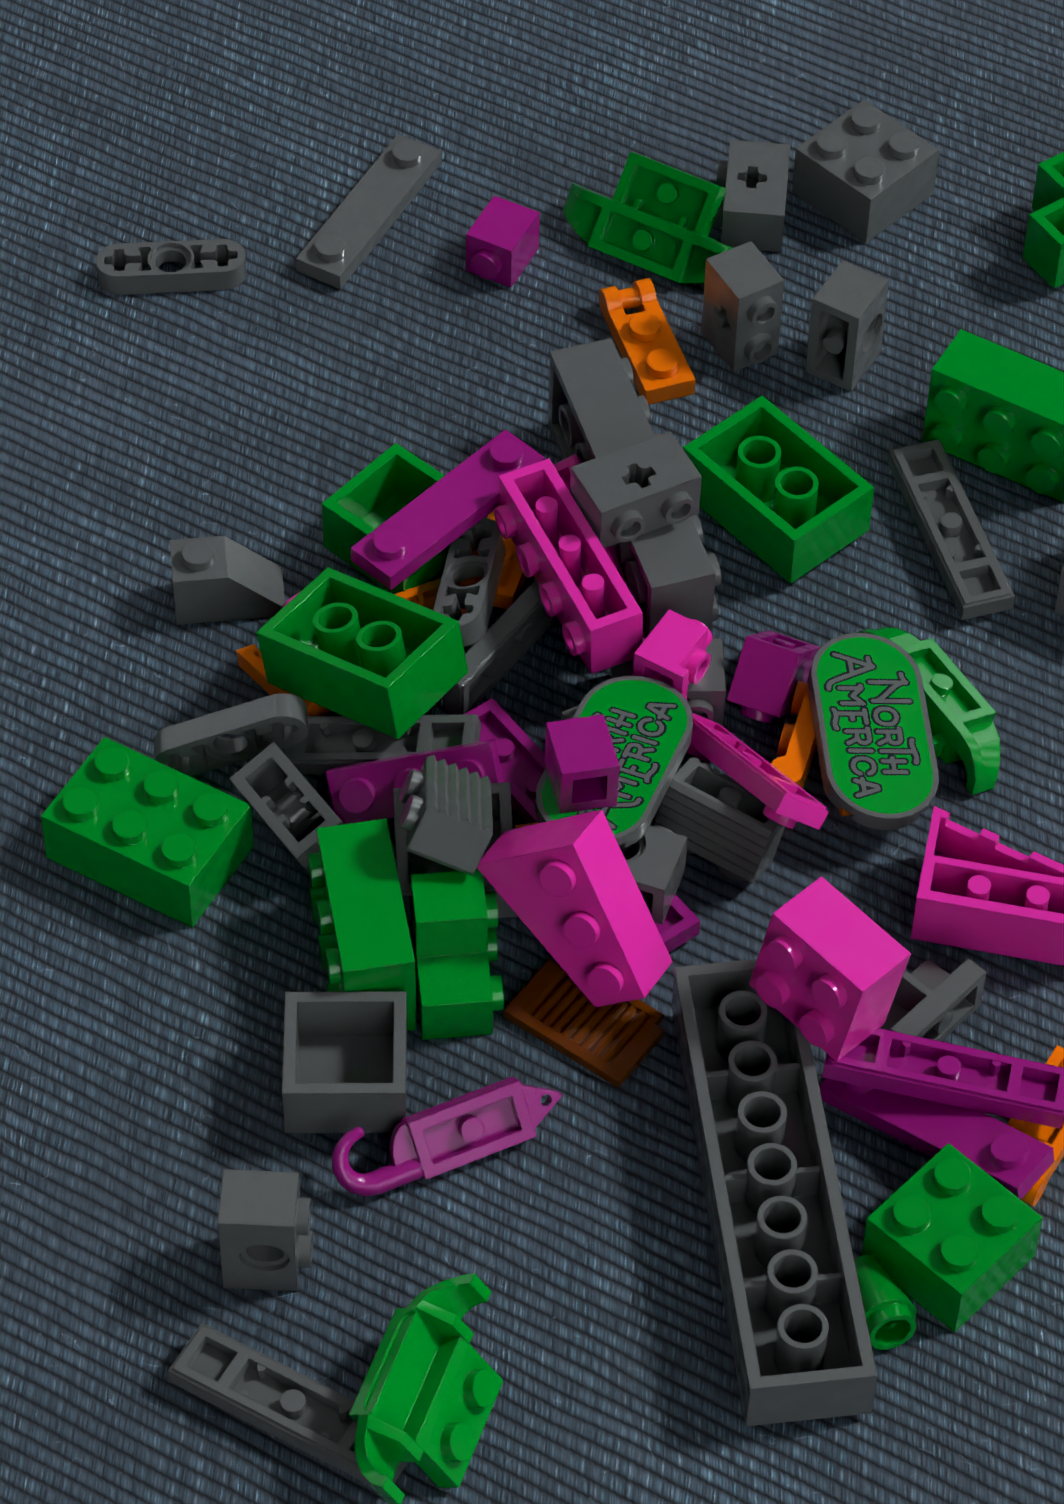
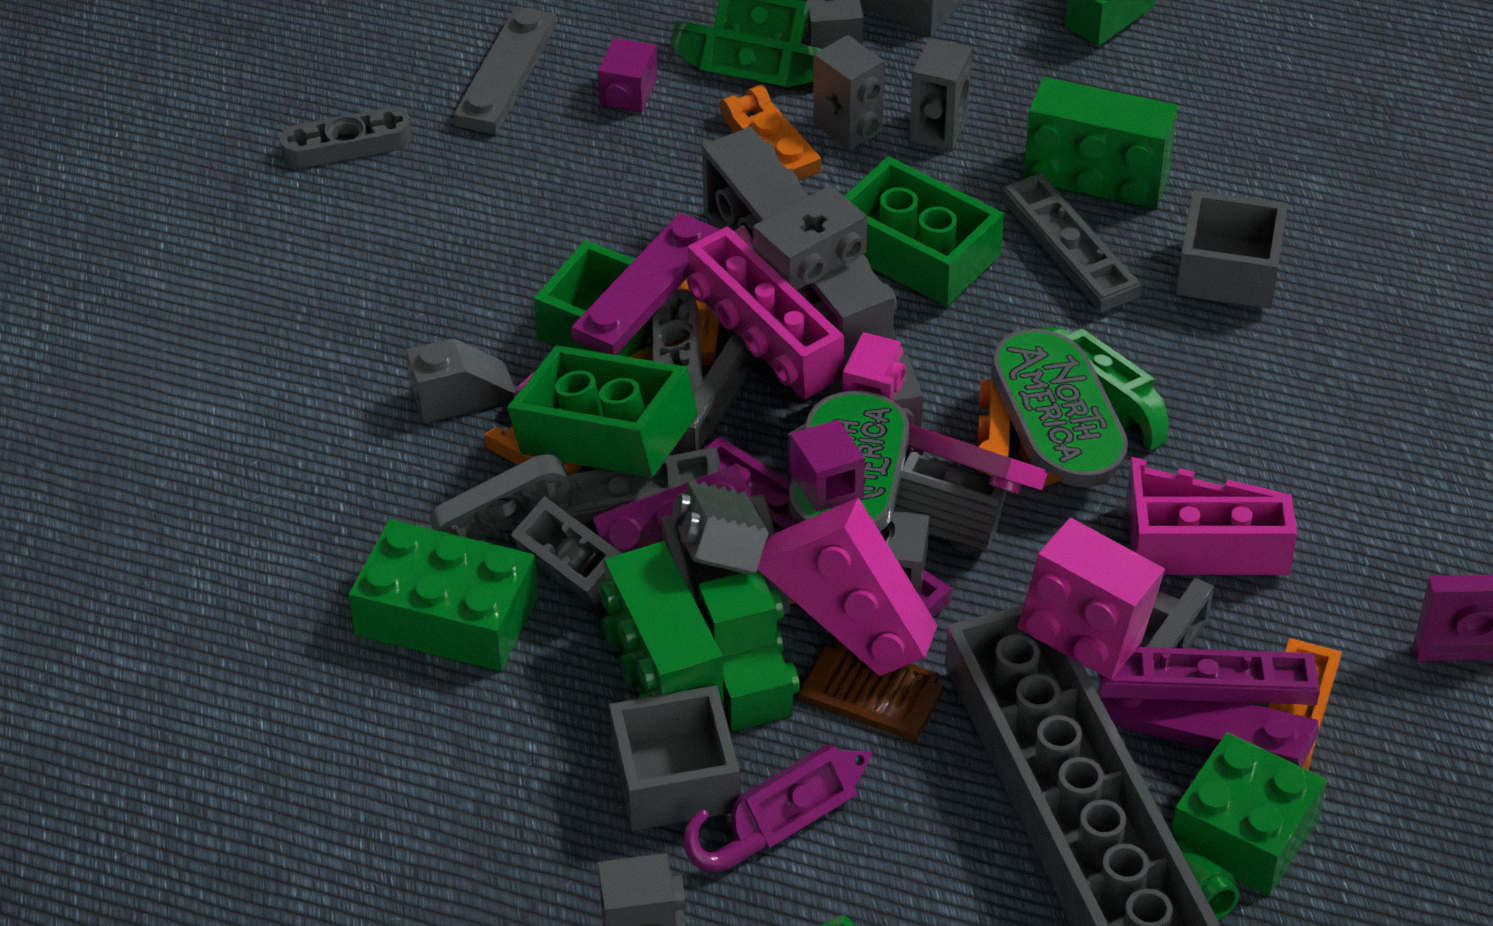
camera: 10 degrees left, 5 degrees down
(769, 674) = (954, 381): magenta slope -> none

